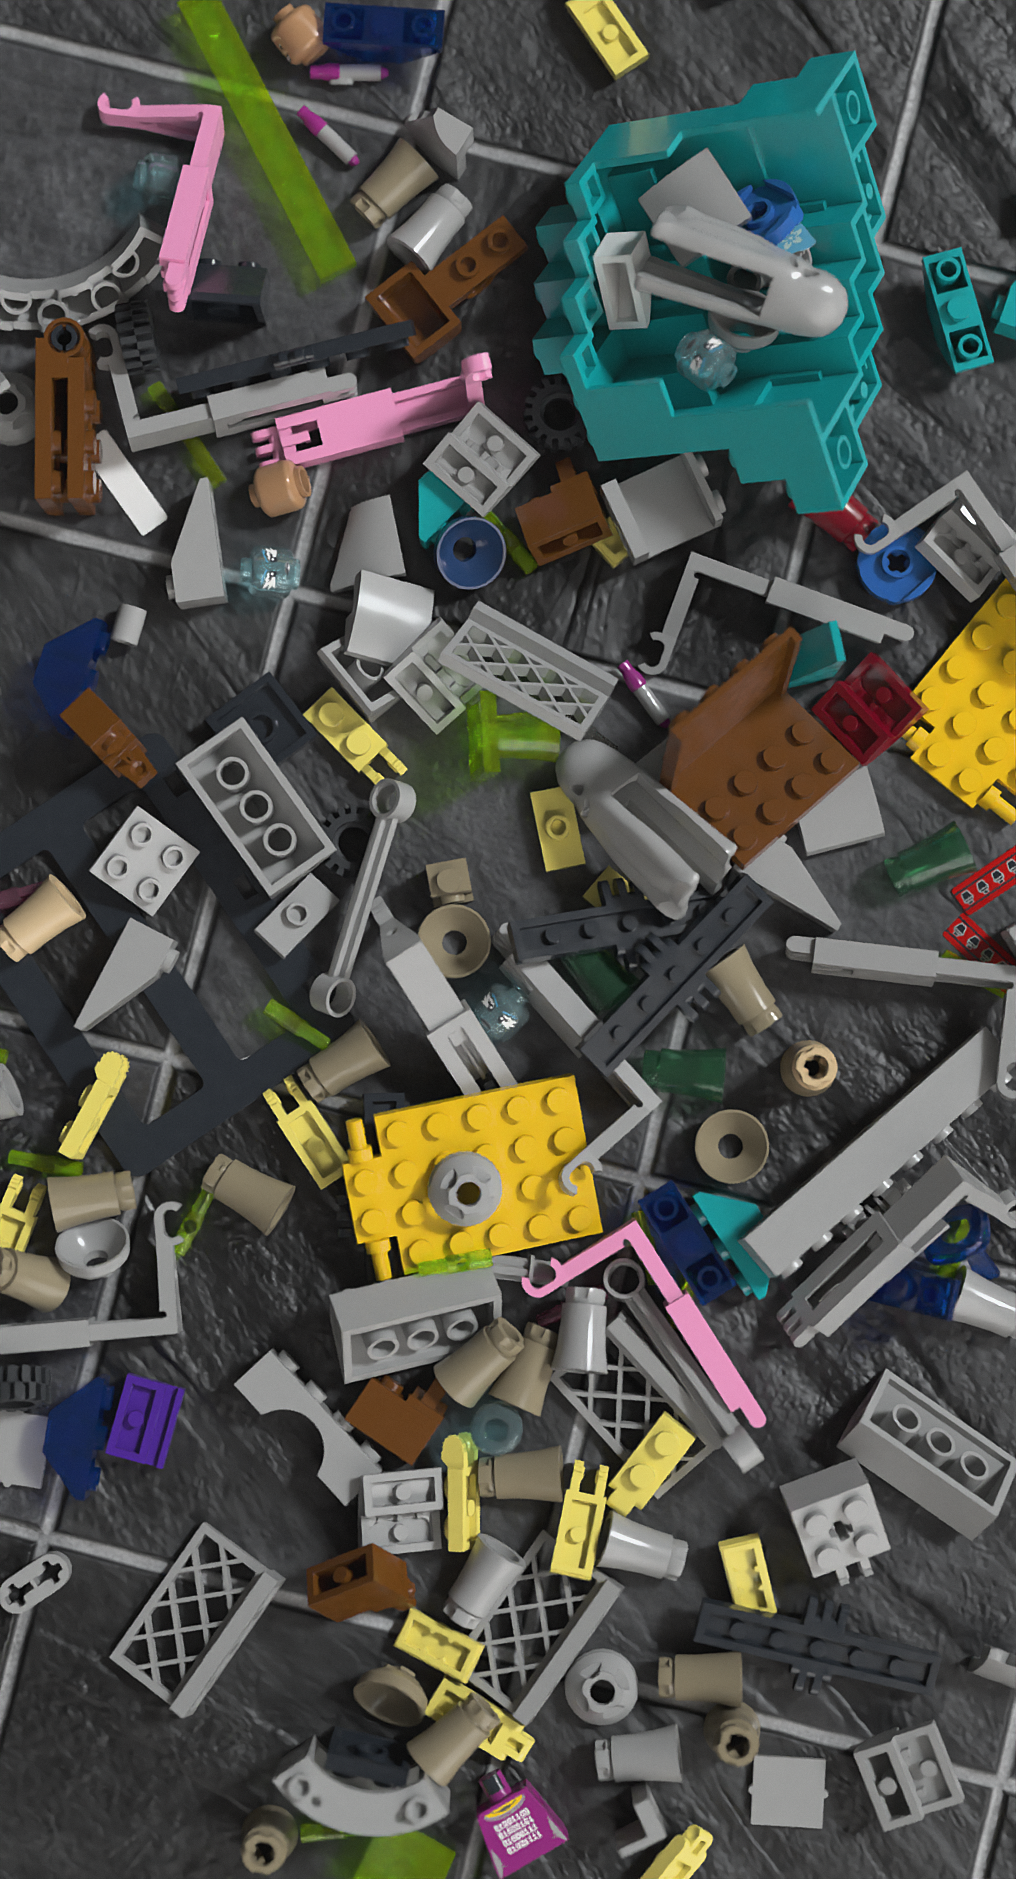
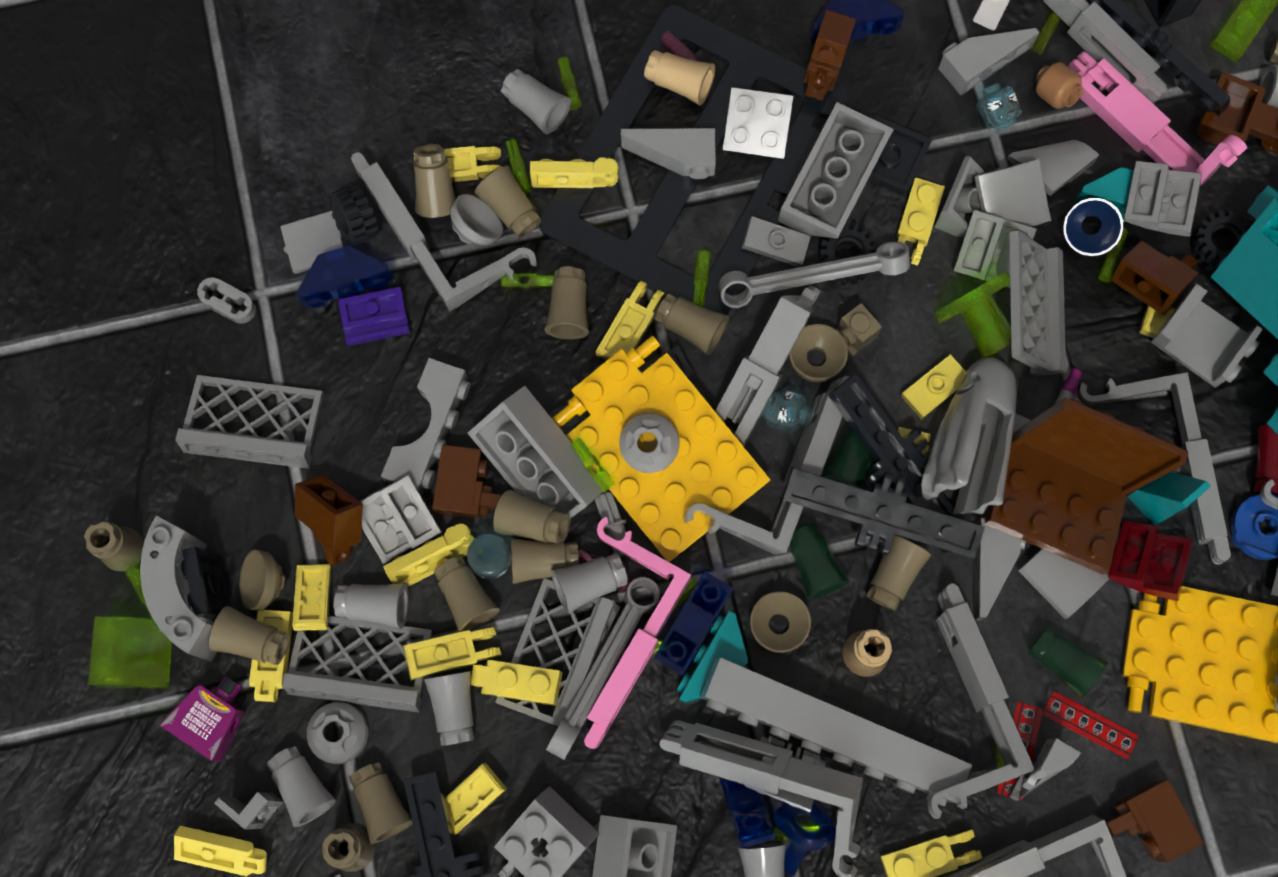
camera: 60 degrees right, 10 degrees down
(128, 624) = (909, 38): light grey hinge -> none

